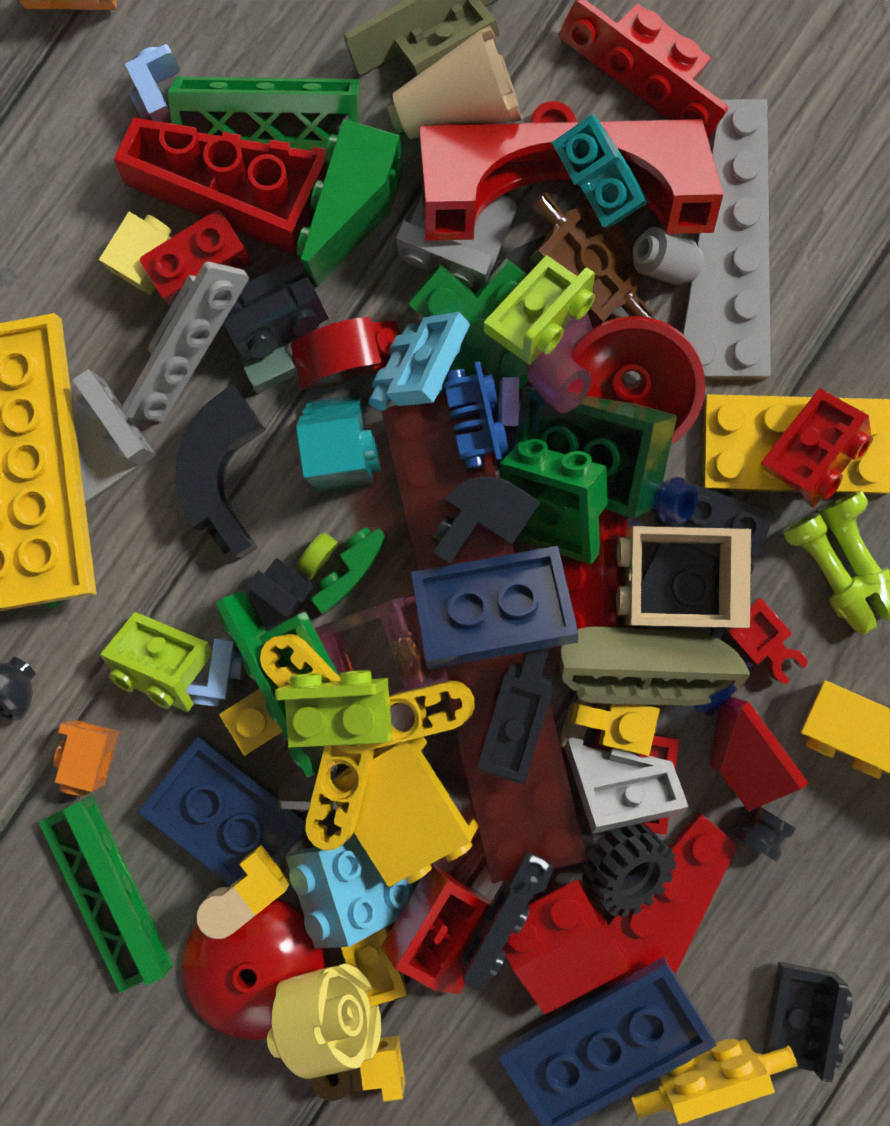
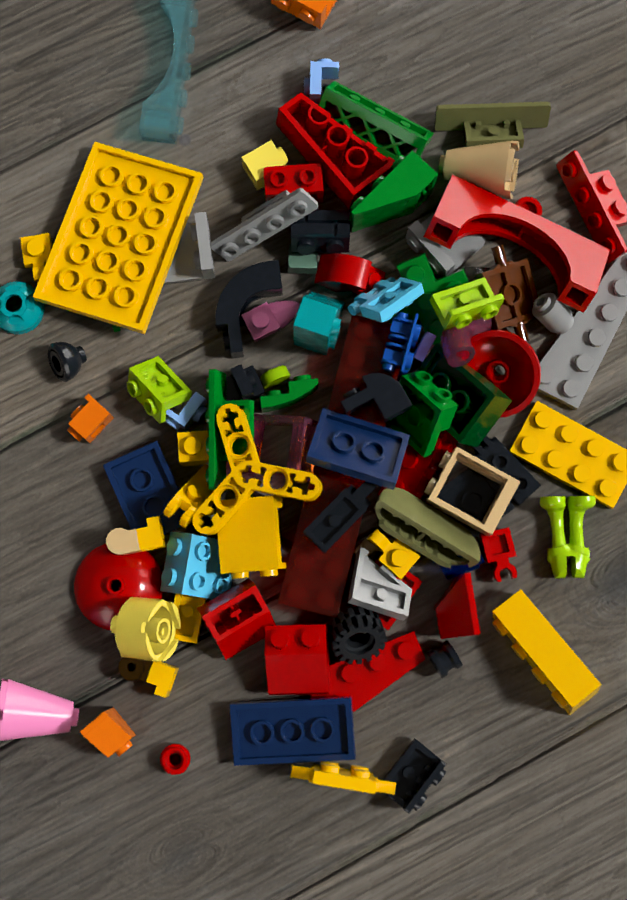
camera: 20 degrees right, 5 degrees down
(116, 888) = (68, 499): green fence -> none
(265, 473) = (269, 318): none -> bright pink plate
(286, 802) = (190, 497): none -> yellow hinge
(336, 711) = (245, 458): lime bracket -> none
(504, 916) = (277, 621): black hinge -> none
(600, 171) = (538, 248): teal slope -> none
(676, 500) = (488, 448): clear blue plate -> none
(819, 446) = (583, 459): red bracket -> none

